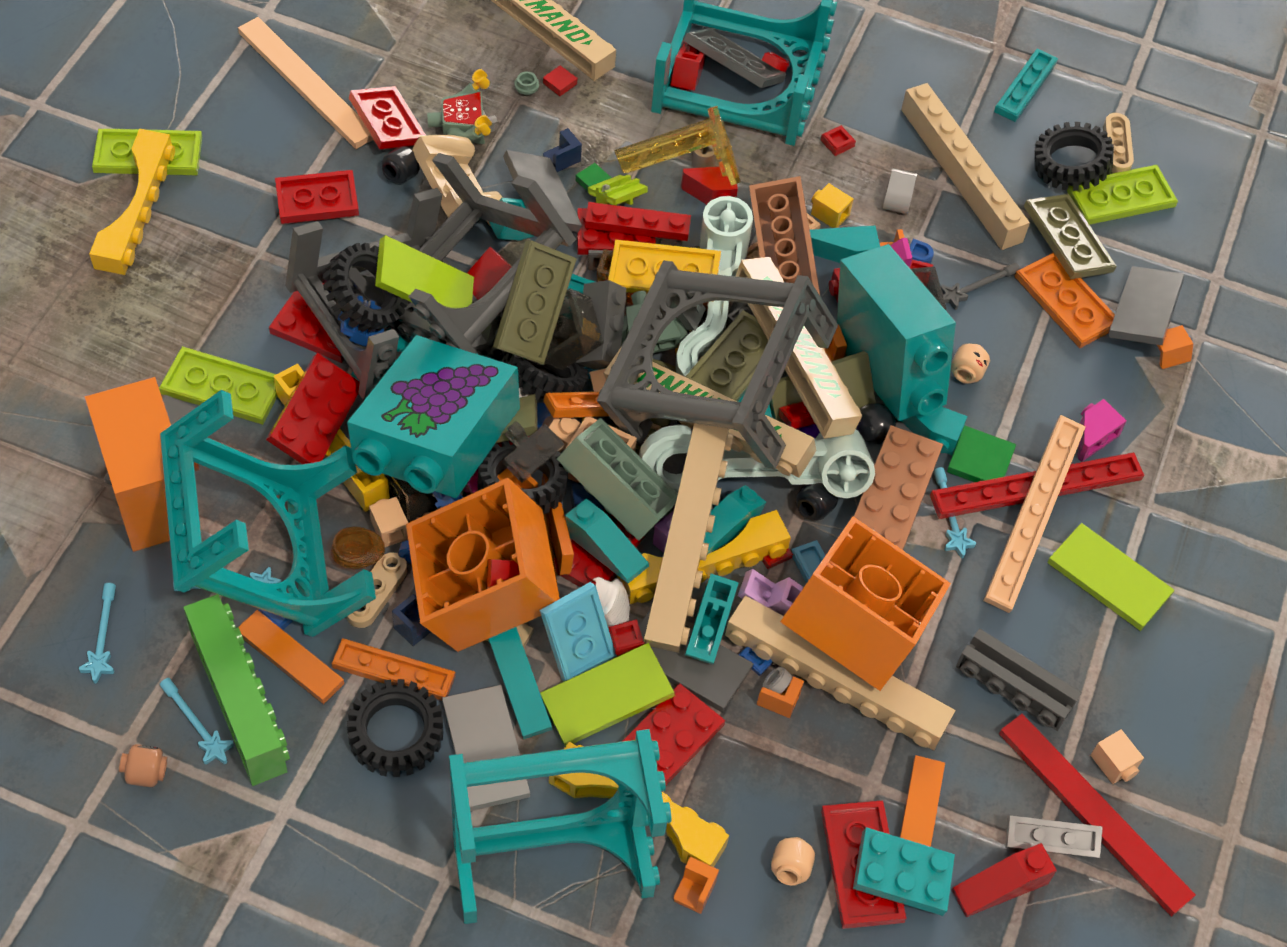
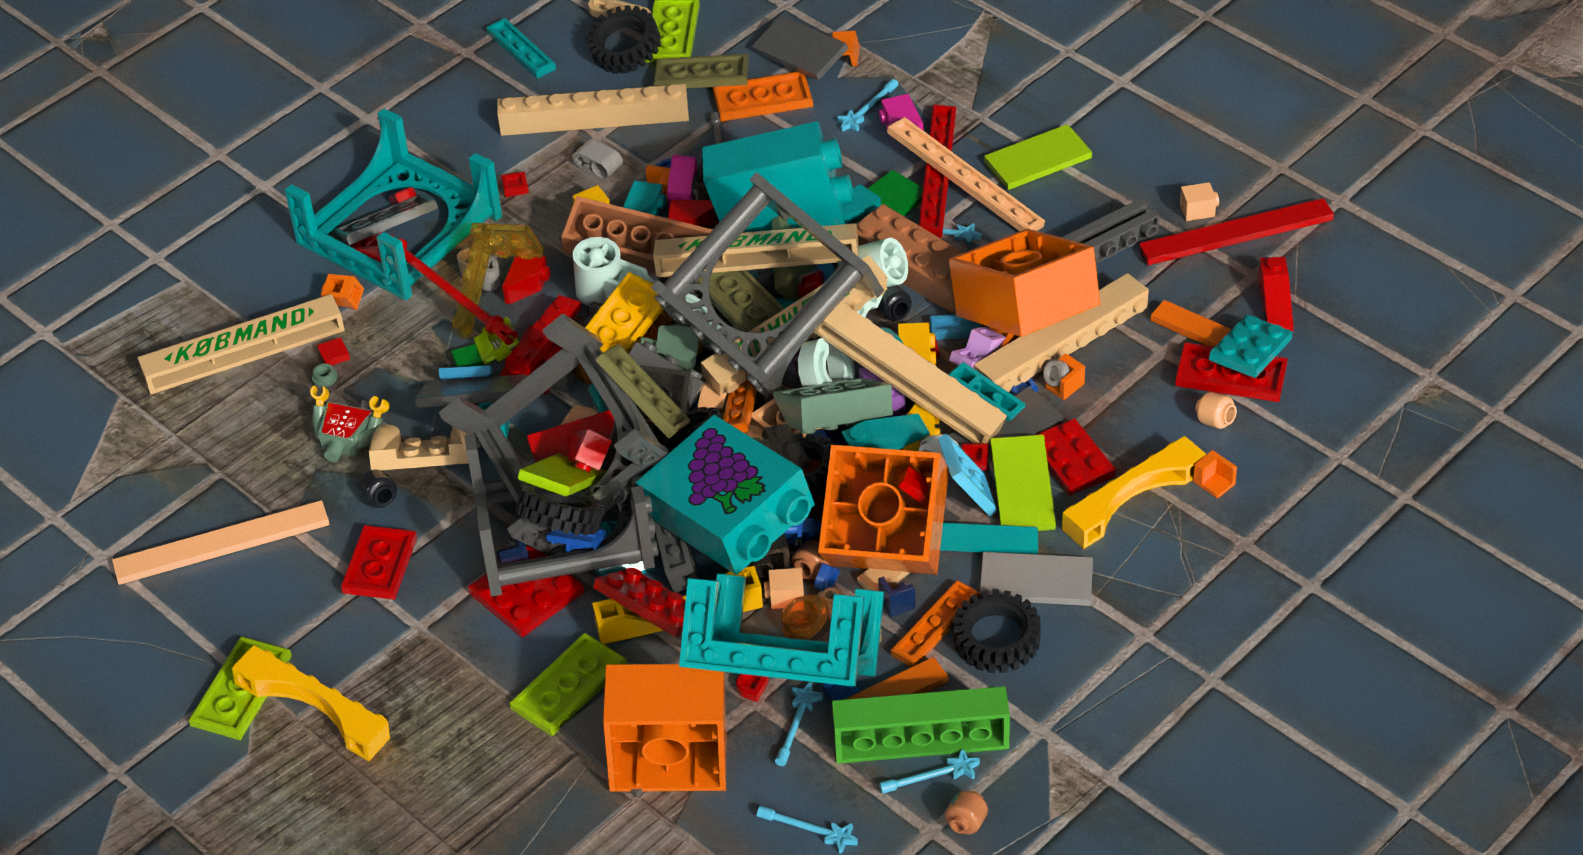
camera: 60 degrees left, 10 degrees down
(264, 532) = (751, 686): none -> red tile
(386, 117) = (312, 484): plate -> none
(463, 289) = (587, 450): none -> red slope
(567, 152) = (424, 366): dark blue panel -> none
(568, 182) = (465, 372): none -> dark azure tile
(612, 826) = (1154, 509): teal arch -> none
(619, 174) = (494, 324): none -> red bar
(631, 59) = (344, 289): none -> orange brick
(1054, 835) = (1248, 258): light grey plate -> none
(1079, 389) = (852, 120): none -> medium azure piece

